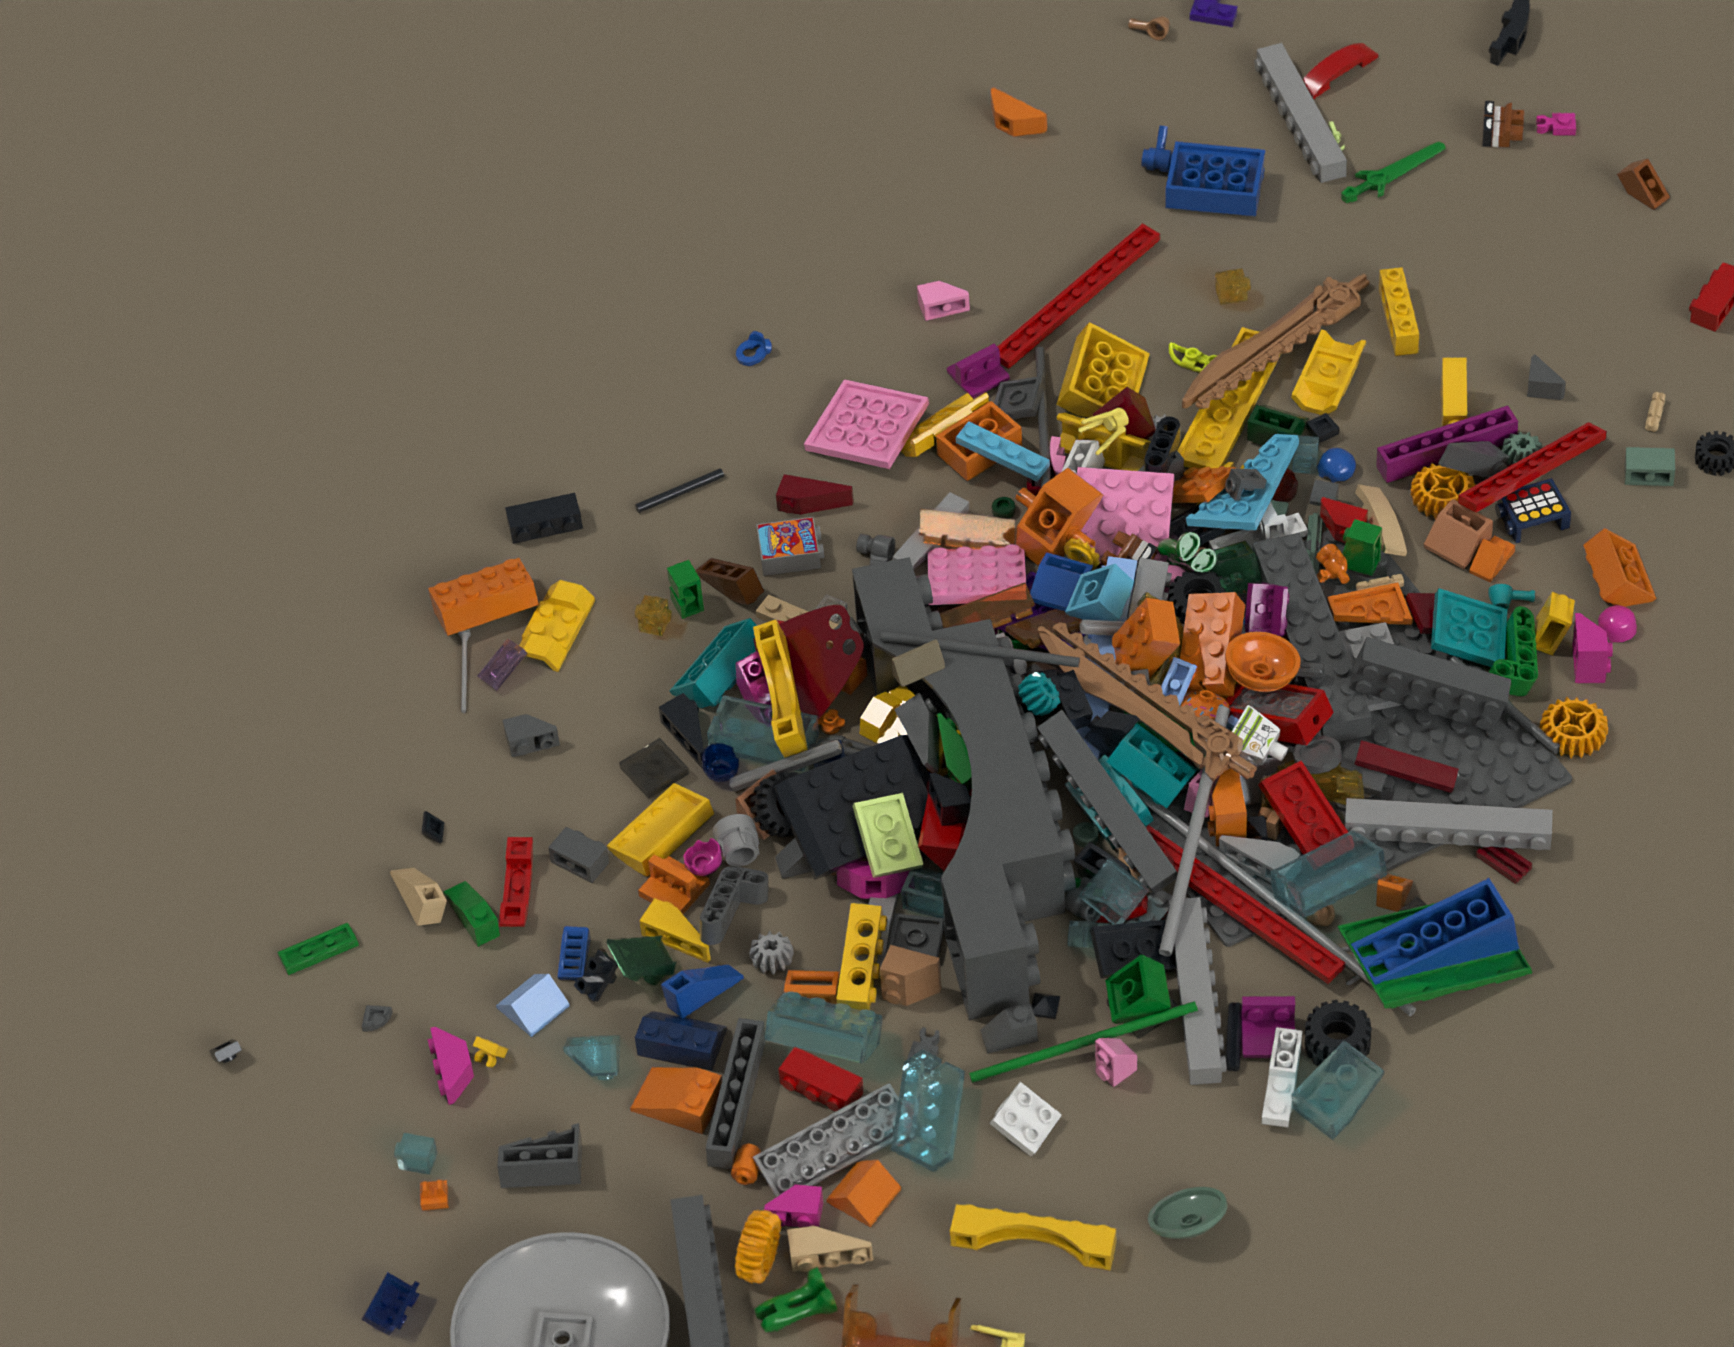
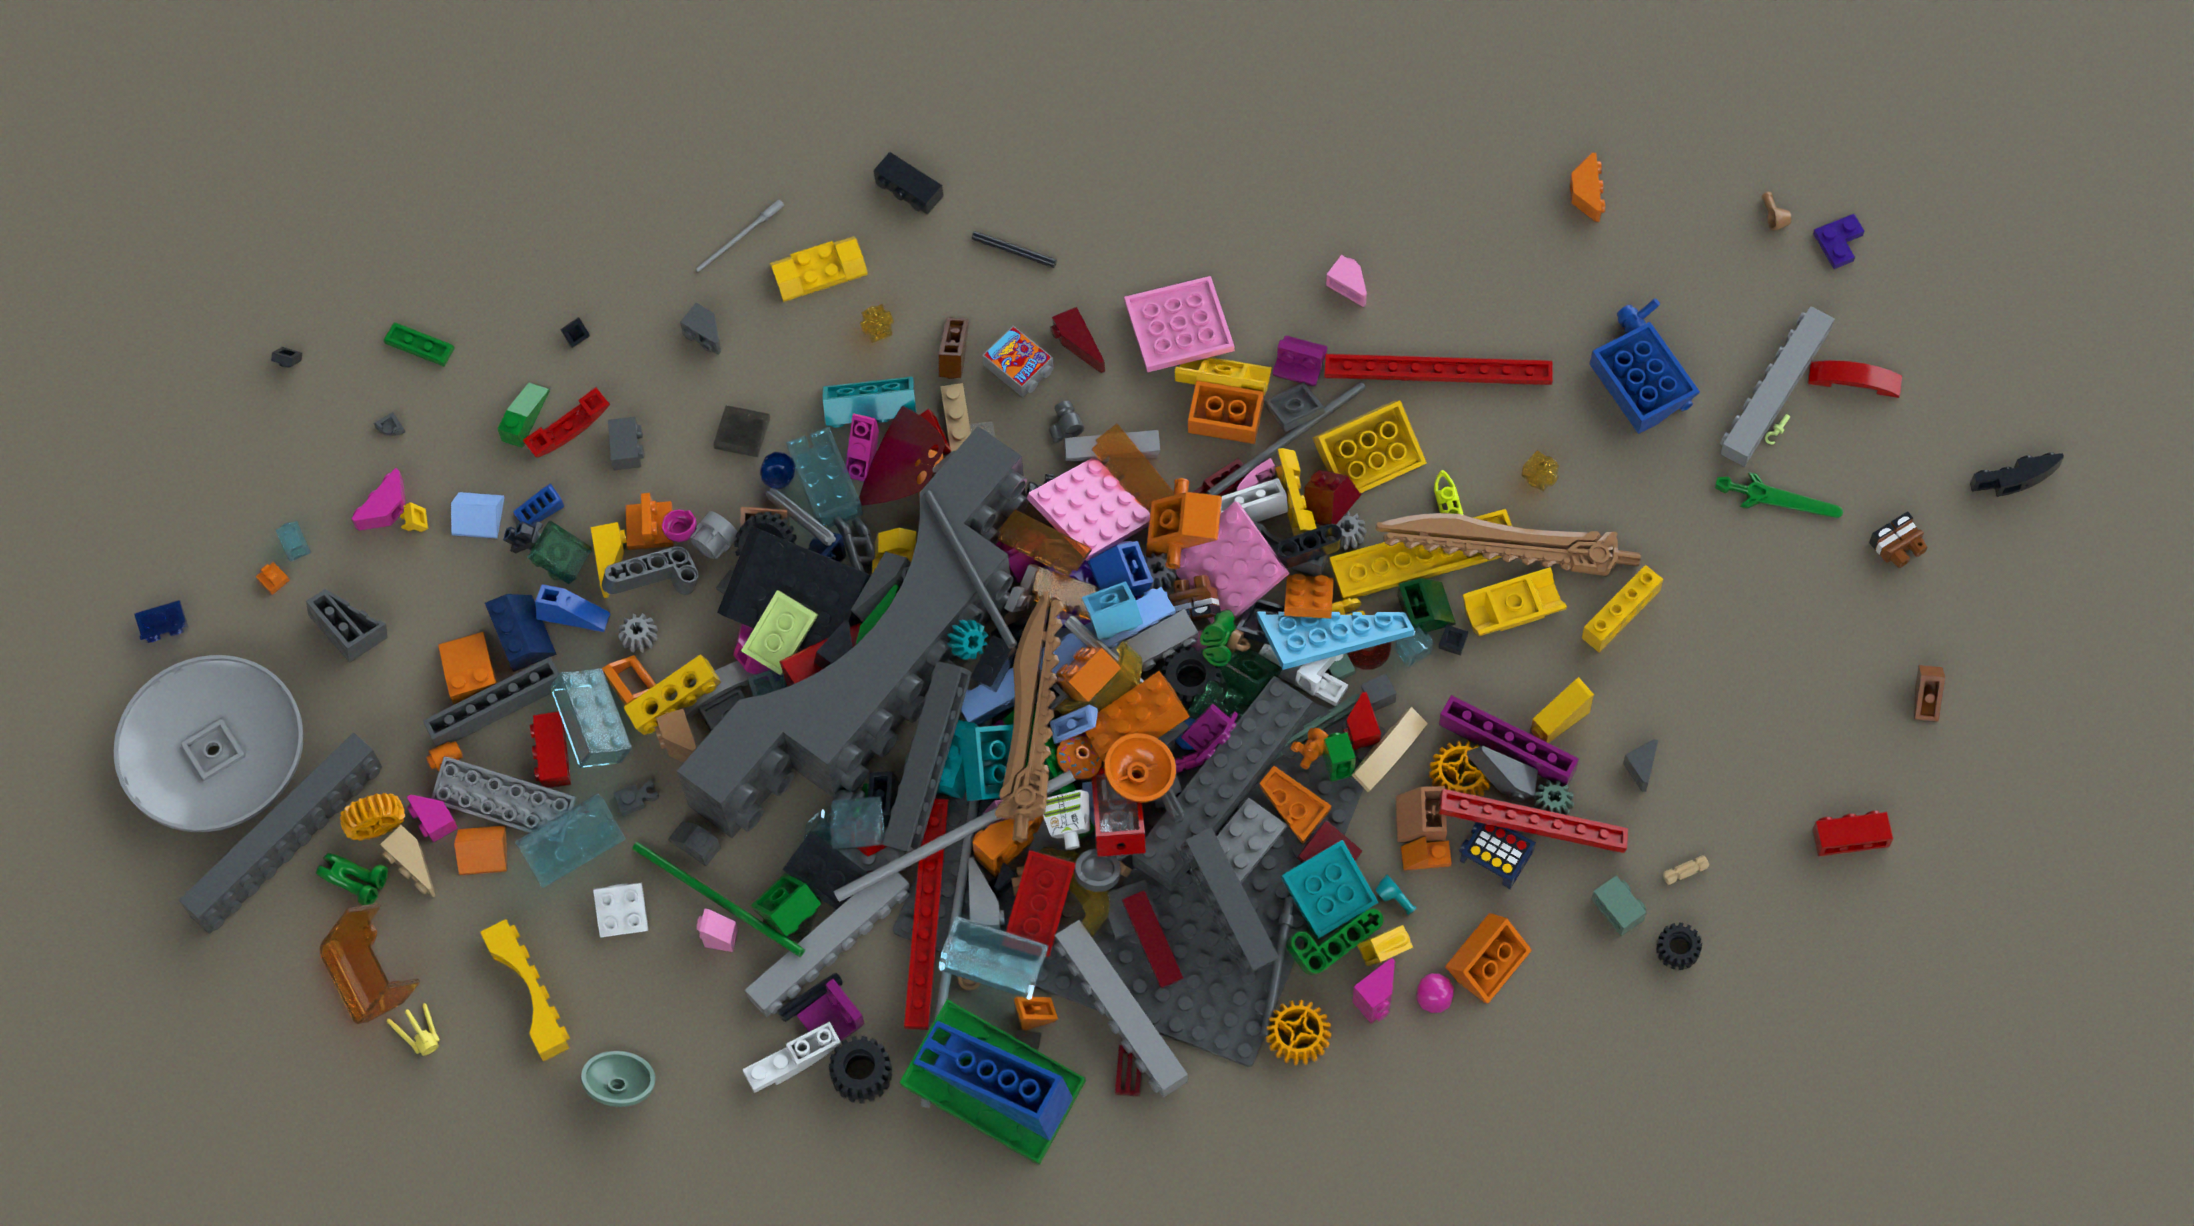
camera: 50 degrees right, 15 degrees up
(421, 895) = (508, 369): tan slope -> none
(483, 596) = (798, 202): orange piece -> none
(502, 664) = (750, 262): clear purple plate -> none
(595, 1054) = (461, 586): clear light blue slope -> none
(661, 827) = (692, 477): yellow slope -> none
(682, 721) = (796, 420): black slope -> none
(685, 589) = (912, 325): green brick -> none
(755, 339) = (1200, 187): blue piece -> none
(786, 713) = (882, 433): yellow arch -> none
(831, 722) = (881, 519): orange plate -> none
(918, 663) = (918, 538): dark tan slope -> none
(1002, 451) = (1217, 437): medium azure plate -> none
(1003, 508) = (1185, 472): dark green tile -> none
(1045, 1005) = (739, 848): black slope -> none
(1075, 549) = (1158, 566): yellow gear -> none
(1110, 730) = (991, 710): black slope -> none
(1112, 420) = (1302, 491): light yellow plant -> none
(1243, 479) = (1321, 626): dark grey bracket -> none
(1336, 465) = (1425, 677): blue hair -> none
(1336, 1089) = (802, 1104): clear light blue slope -> none
(1381, 581) = (1322, 792): tan axle -> none
(1559, 124) = (1944, 584): dark pink plate -> none

